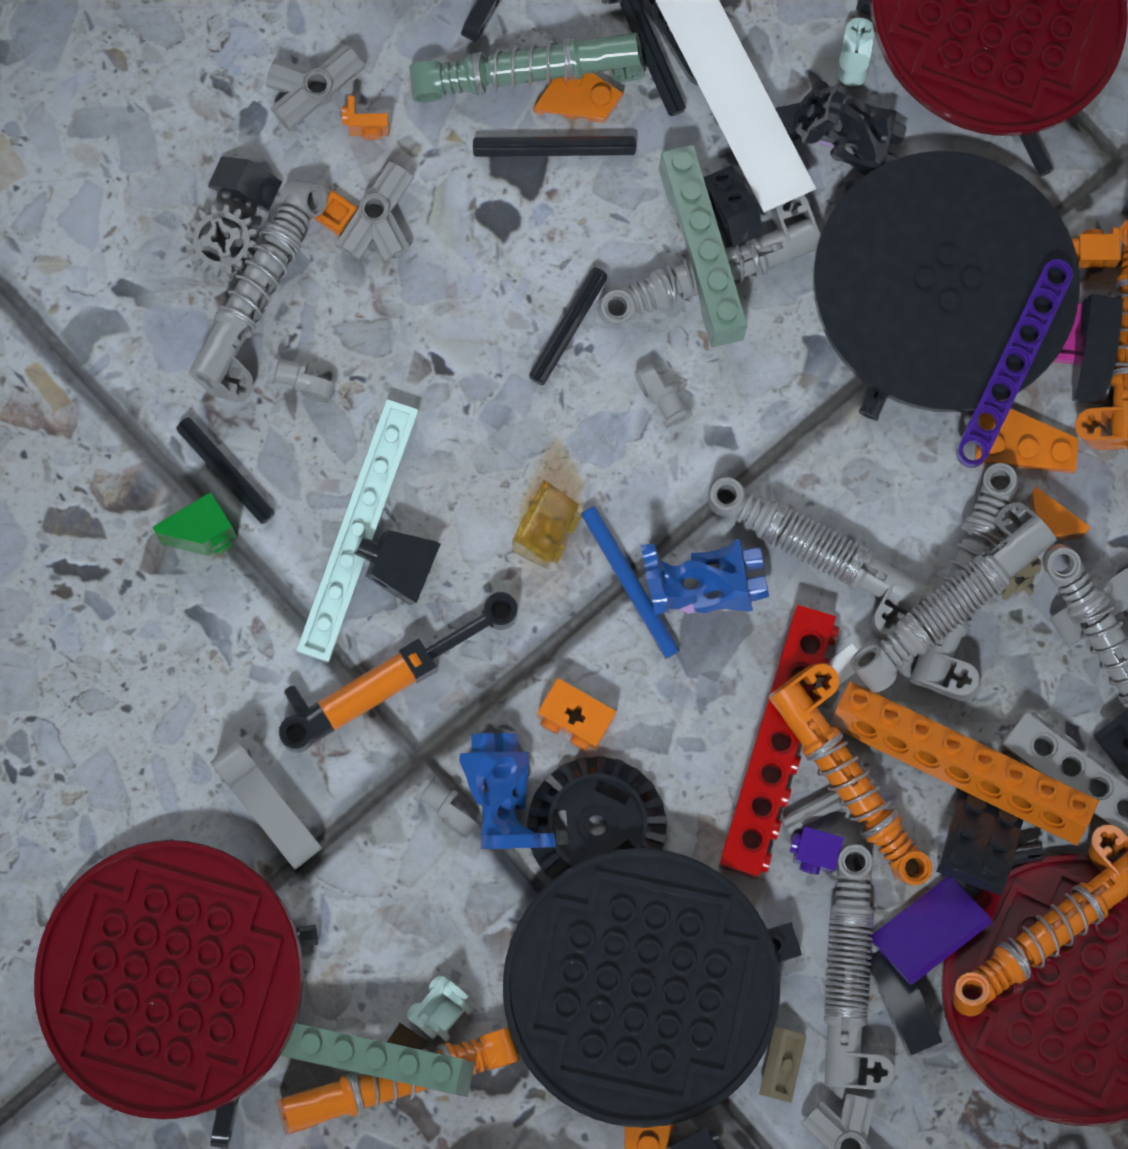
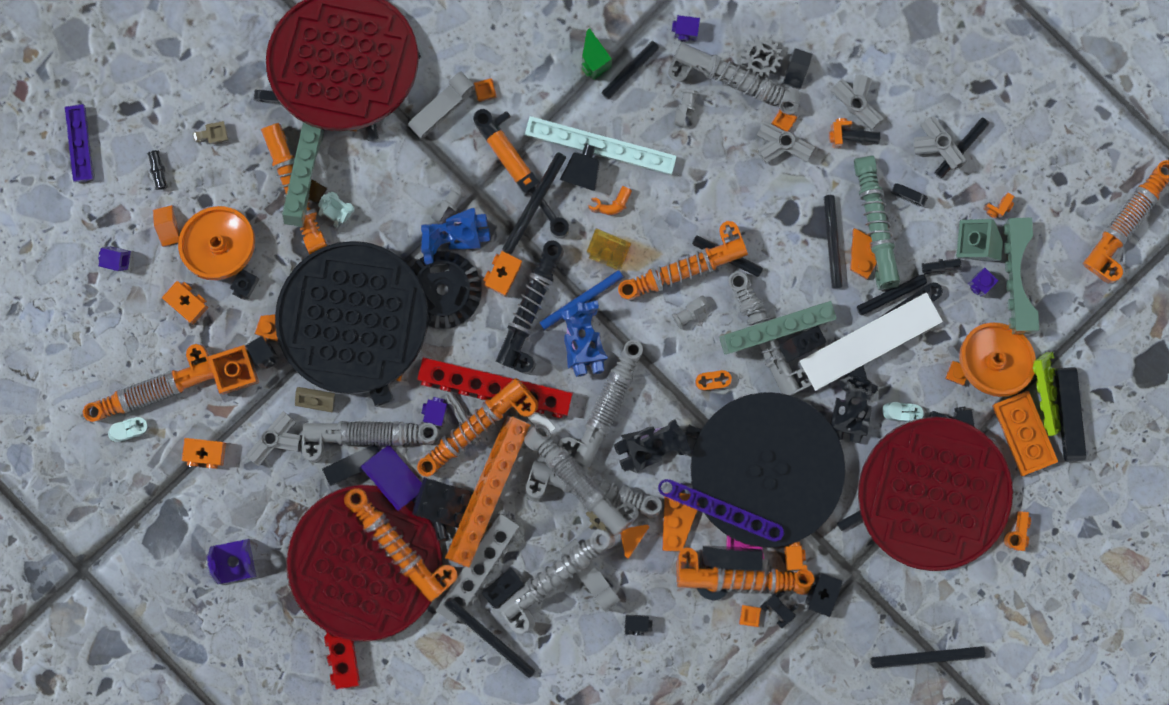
camera: 90 degrees right, 5 degrees up
(159, 367) = (686, 28): none -> dark purple brick
(241, 727) = (485, 90): none -> orange tile
(373, 83) = (860, 135): none -> black pin
(455, 650) = (534, 203): none -> black axle
(467, 508) = (616, 206): none -> orange piece
(586, 390) = (692, 265): none -> orange piece
(646, 676) = (522, 323): none -> black piece
(776, 365) = (713, 385): none -> orange beam
(890, 493) = (642, 443): none -> black hips

